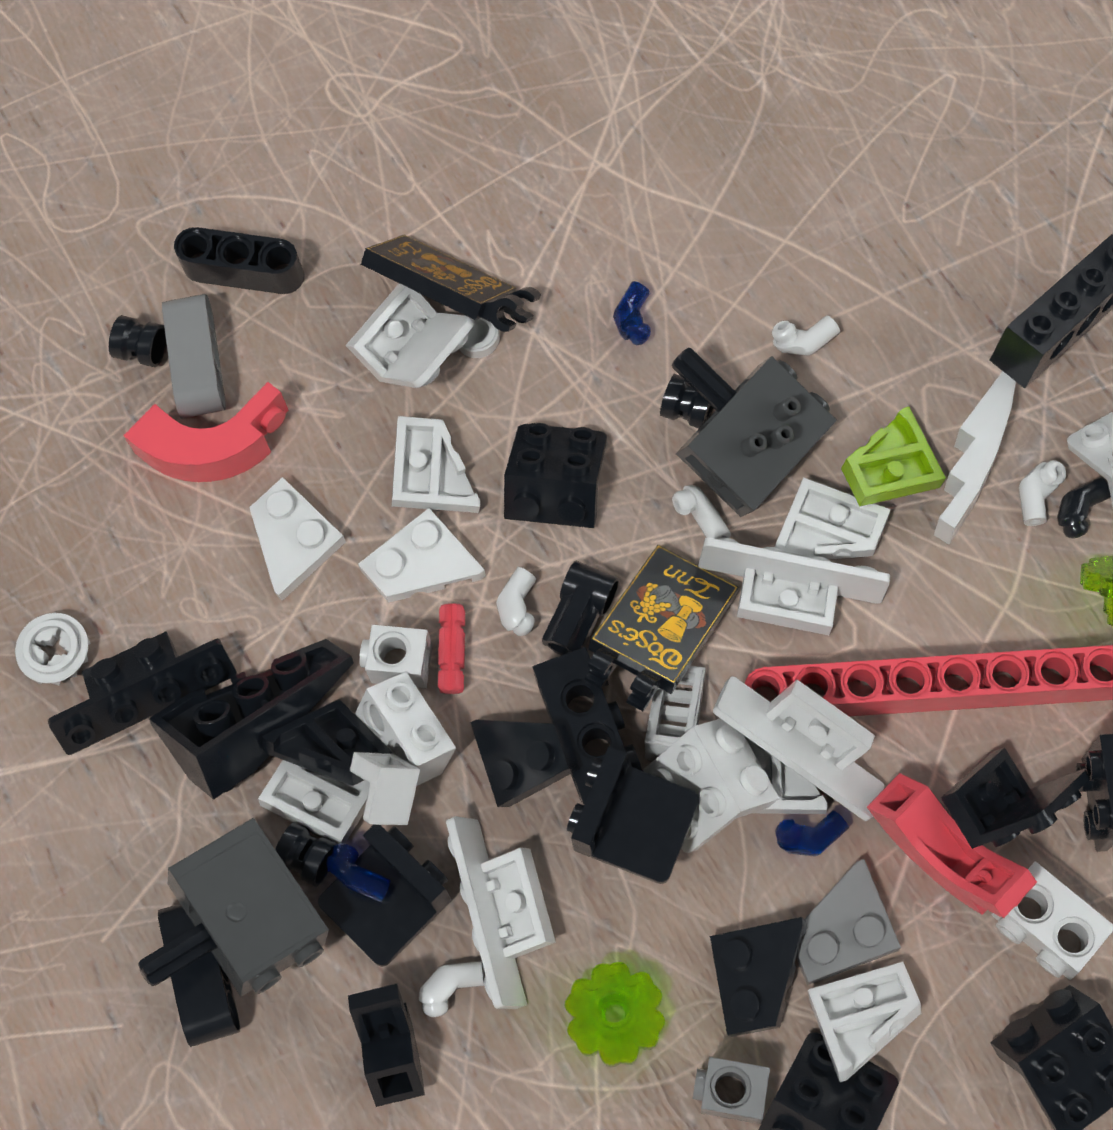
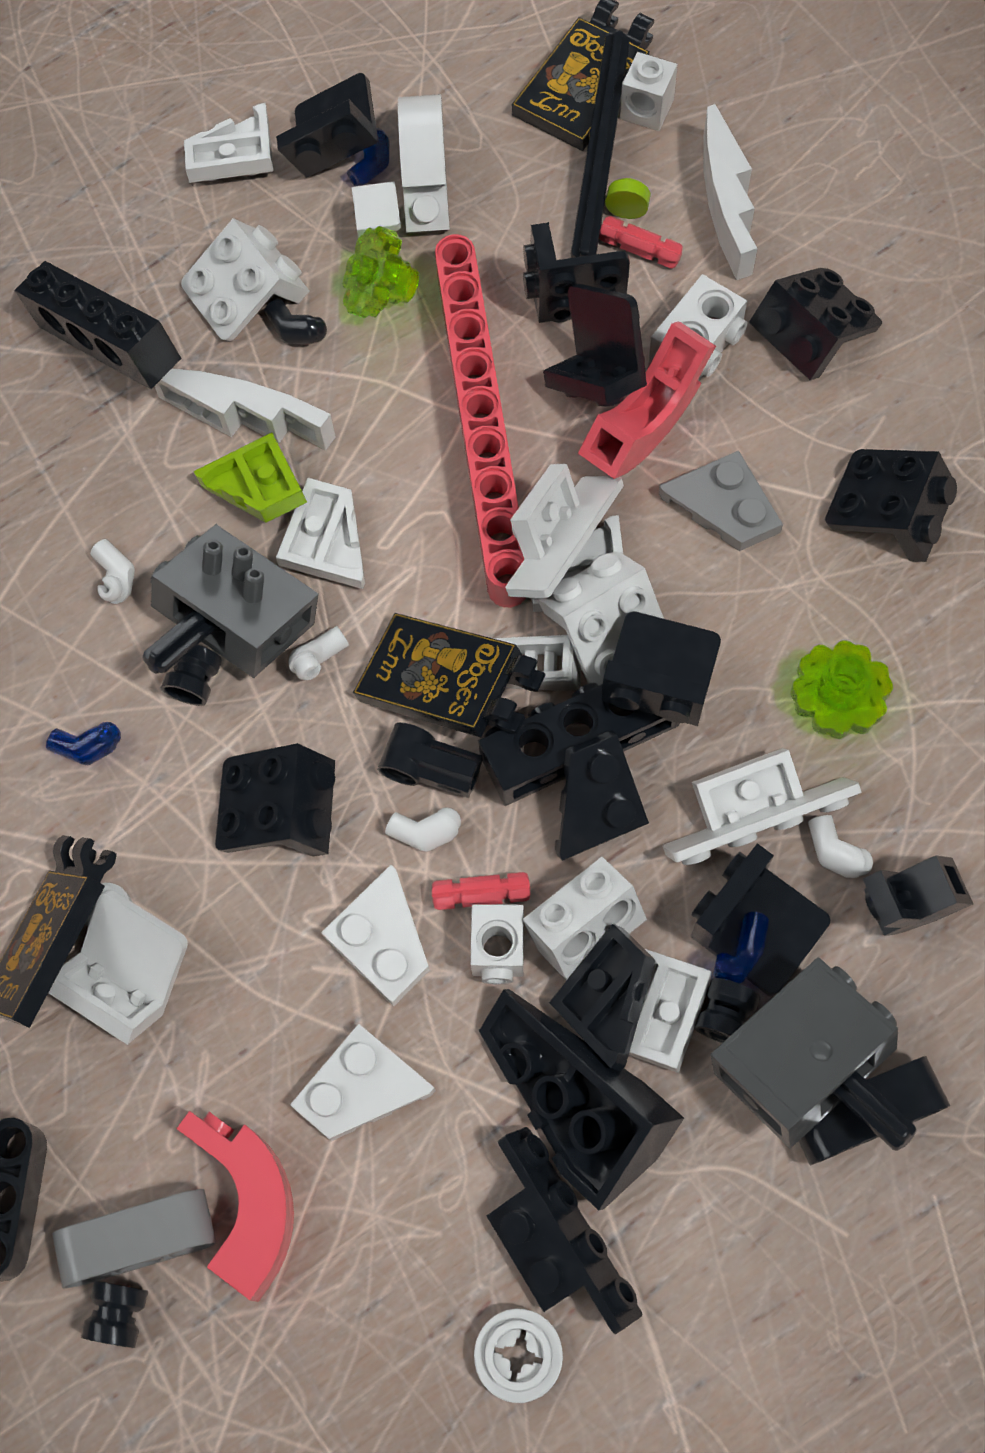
camera: 100 degrees left, 0 degrees up
(390, 789) = (654, 915): white panel -> none
(429, 469) = (273, 939): white wing -> none
(752, 1077) = (898, 560): light grey brick -> none
(755, 972) = (781, 567): black wing -> none
(791, 587) = (396, 564): white bracket -> none
(810, 840) = (645, 533): clear blue arm -> none
(863, 1014) = (808, 474): white wing -> none
(1037, 487) = (275, 361): white arm -> none

